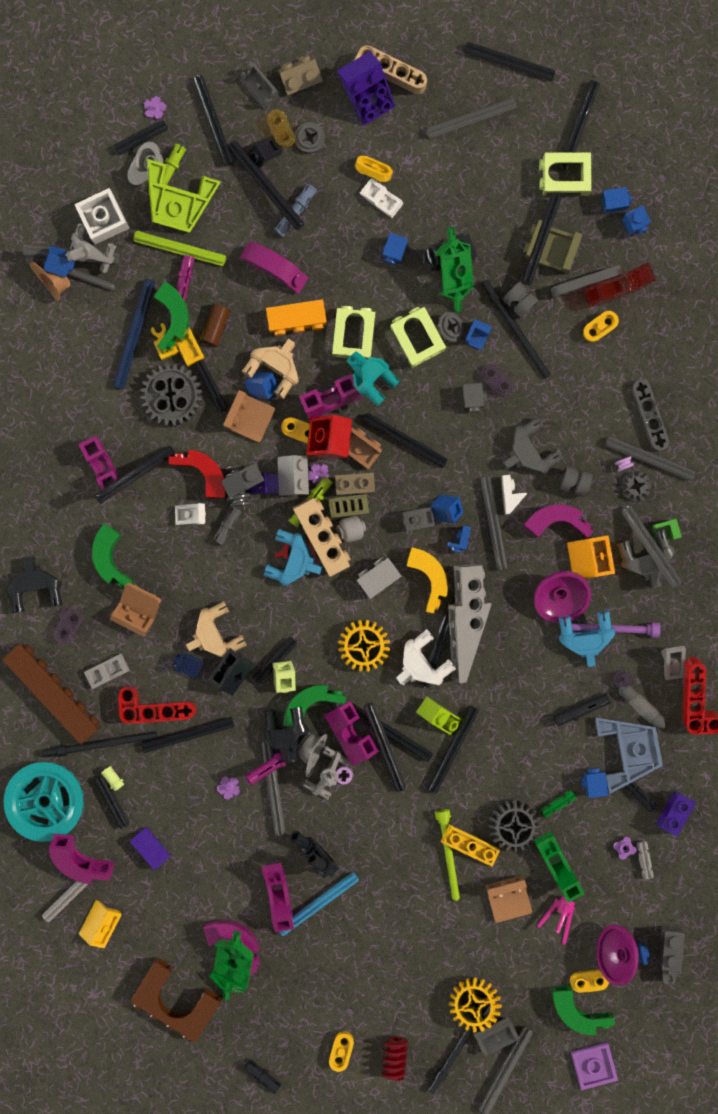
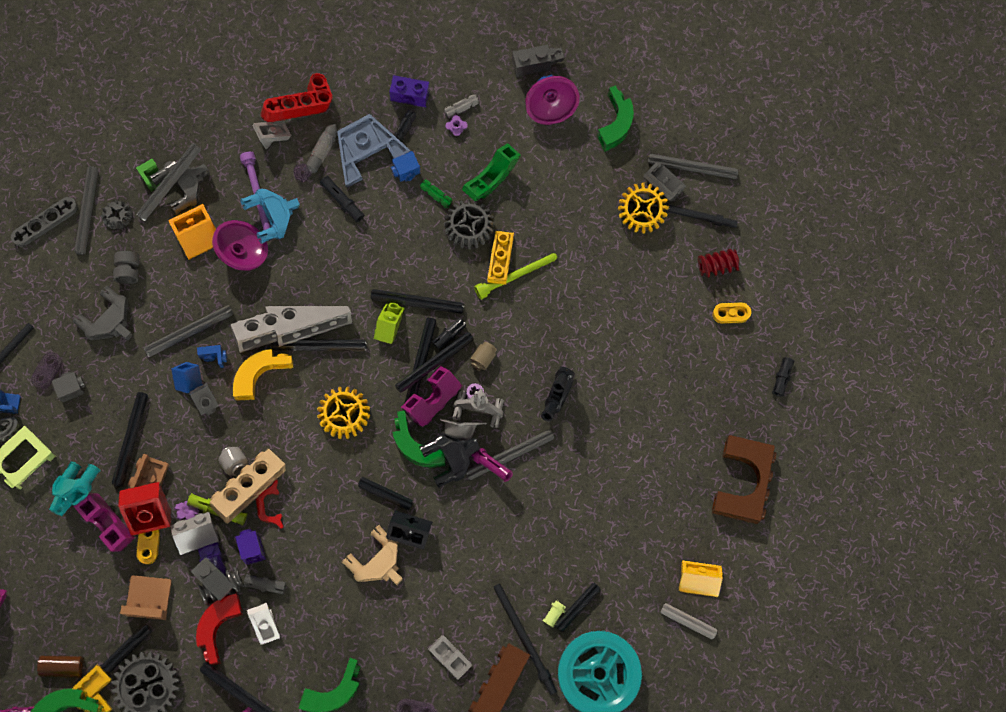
camera: 115 degrees left, 15 degrees down
(76, 865) = (650, 619): magenta arch -> none
(136, 609) = (375, 645): medium nougat bracket -> none
(150, 848) = (609, 553): dark purple slope -> none
(158, 709) = (469, 591): red beam -> none
(187, 735) = (486, 554): black axle -> none
(188, 664) = (416, 576): clear blue bracket -> none
(224, 929) = (660, 451): magenta arch -> none
(227, 974) = (700, 438): green plate -> none
(228, 787) = (524, 498): medium lavender plant -> none
(261, 385) = (111, 596): blue panel -> none
(262, 522) = (250, 547): none -> dark purple brick
(278, 360) = (82, 586): tan connector -> none
(279, 897) = (610, 414): magenta arch -> none
(284, 677) = (398, 477): yellowish green brick -> none
(296, 317) = (31, 583): light orange brick -> none
(299, 561) = (280, 499): dark azure connector -> none
(323, 900) = (604, 378): dark azure axle -> none
(342, 314) = (15, 538): yellowish green panel -> none
(350, 513) = (217, 485): olive slope -> none
(355, 484) = (186, 471): dark tan brick -> none
(376, 795) = (483, 356): none -> dark tan brick
(379, 577) = (272, 418): light grey brick -> none
(409, 770) = (449, 334): none -> black axle
(416, 665) = (347, 356): white connector -> none
(509, 899) = (537, 209): medium nougat bracket -> none
(510, 500) = (161, 322): white slope -> none
(557, 513) = (160, 267): magenta arch -> none
(565, 909) = (527, 159): dark pink plant -> none
(589, 978) = (586, 119): yellow plate -> none
(594, 1065) = (659, 94): medium lavender tile -> none
(625, 463) = (97, 230): lavender bush -> none

